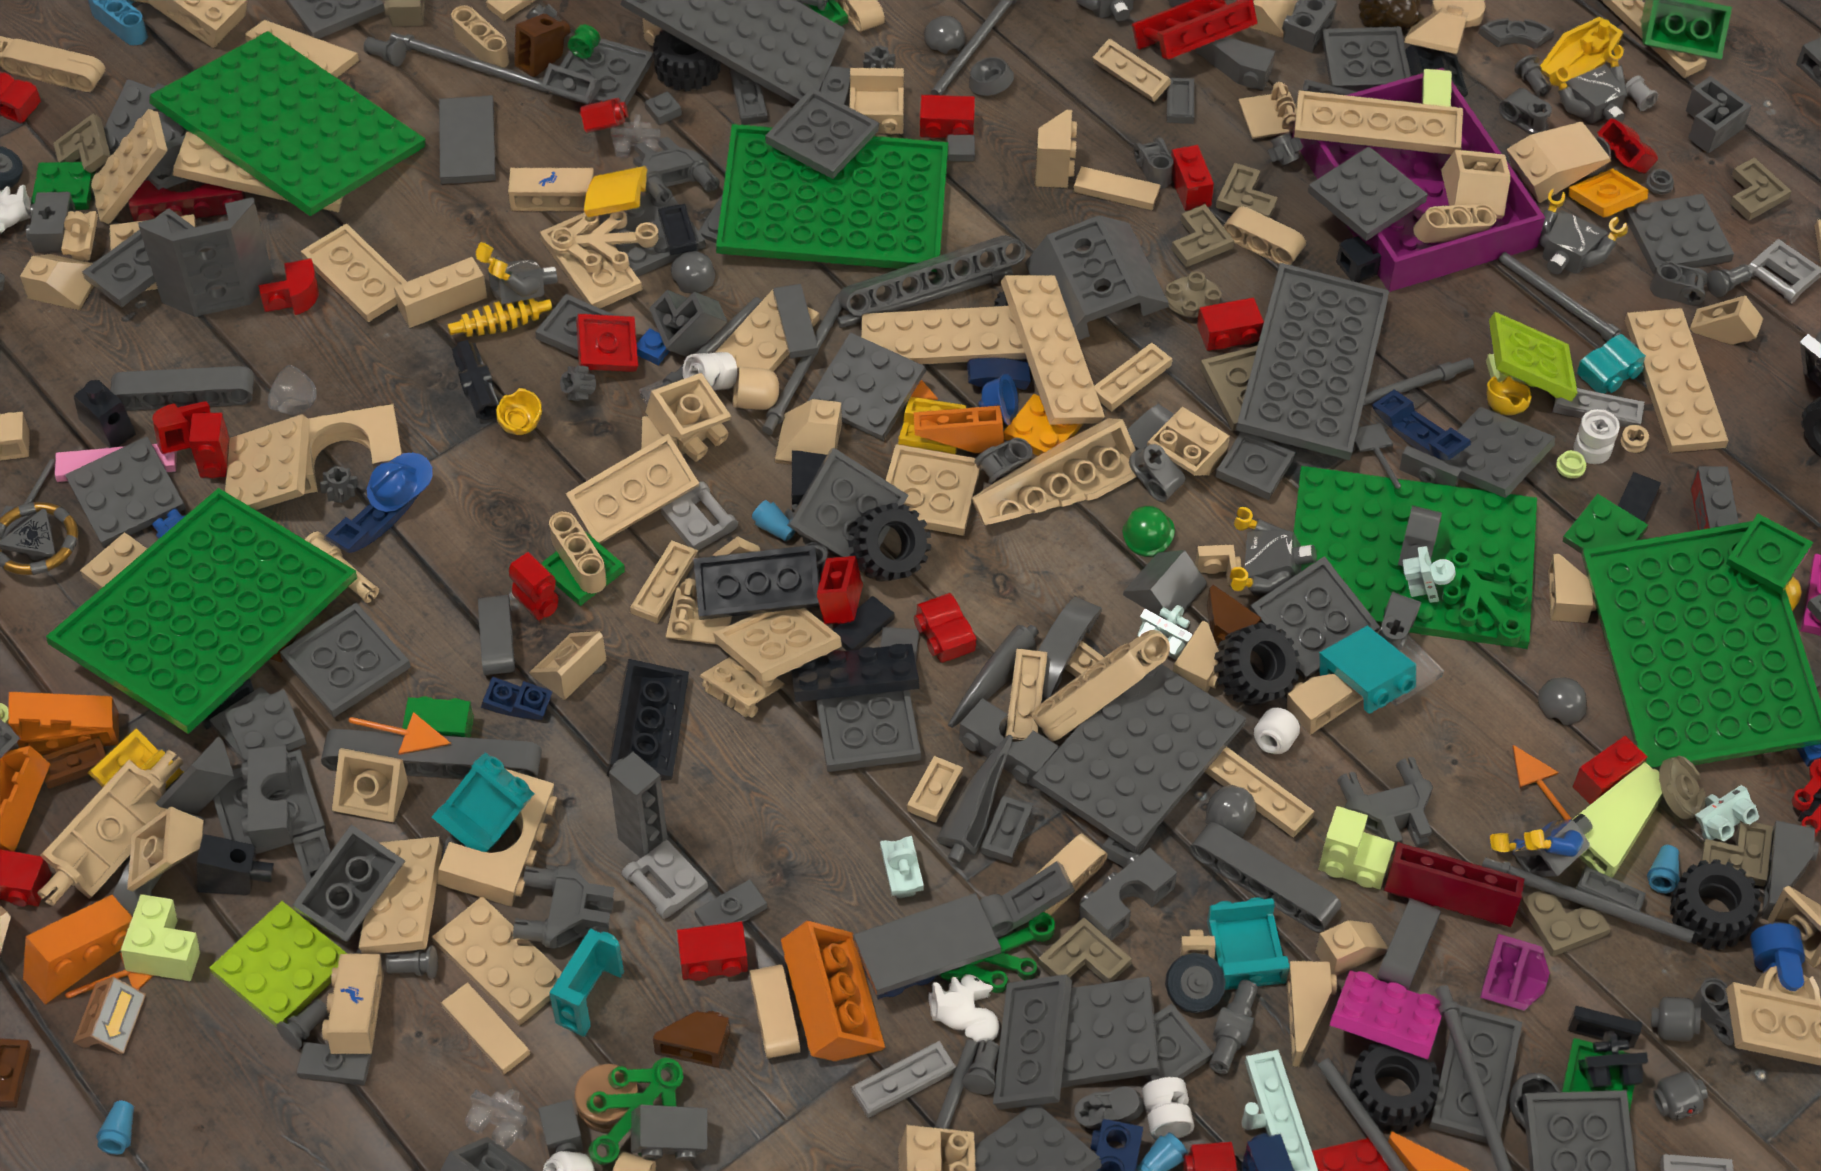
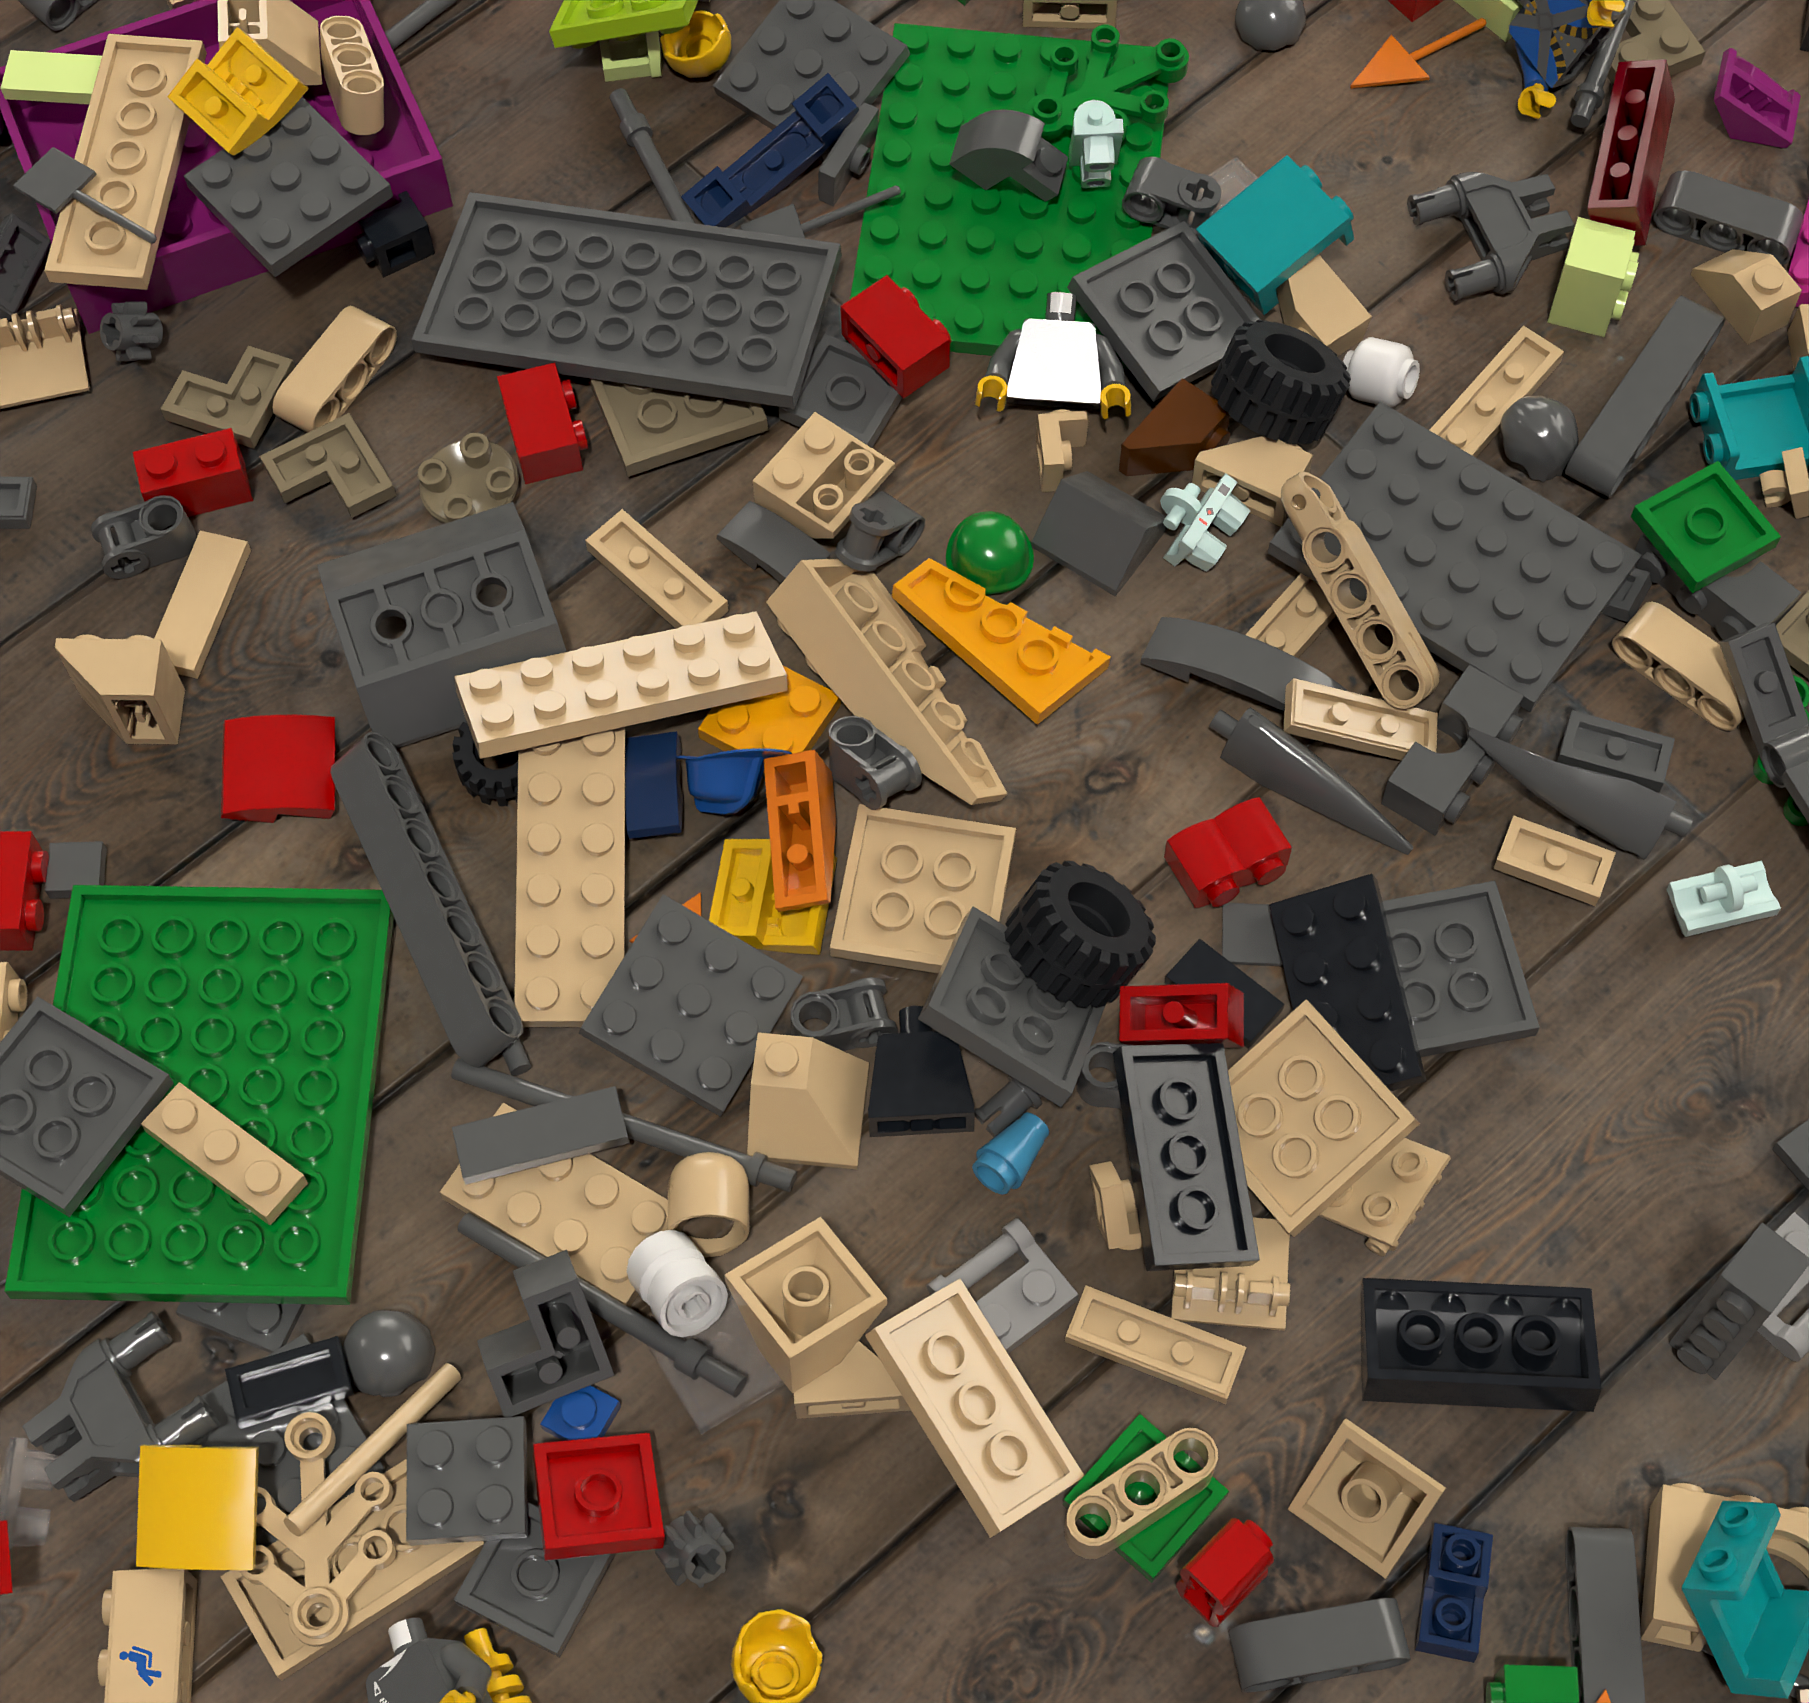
camera: 90 degrees left, 10 degrees up
(621, 293) = (466, 1481): none -> dark grey plate
(638, 257) = (371, 1450): none -> tan bar
(793, 198) = (224, 1153): none -> tan plate
(858, 448) = (846, 1014): none -> dark grey piece
(1016, 218) = (278, 767): none -> red slope
(1085, 534) = (1014, 654): none -> light orange wing
(1149, 873) = (1705, 526): none -> green plate
(1285, 477) = (896, 336): none -> red brick
(1354, 90) = (59, 179): none -> dark grey piece
(1419, 159) = (237, 93): none -> yellow slope

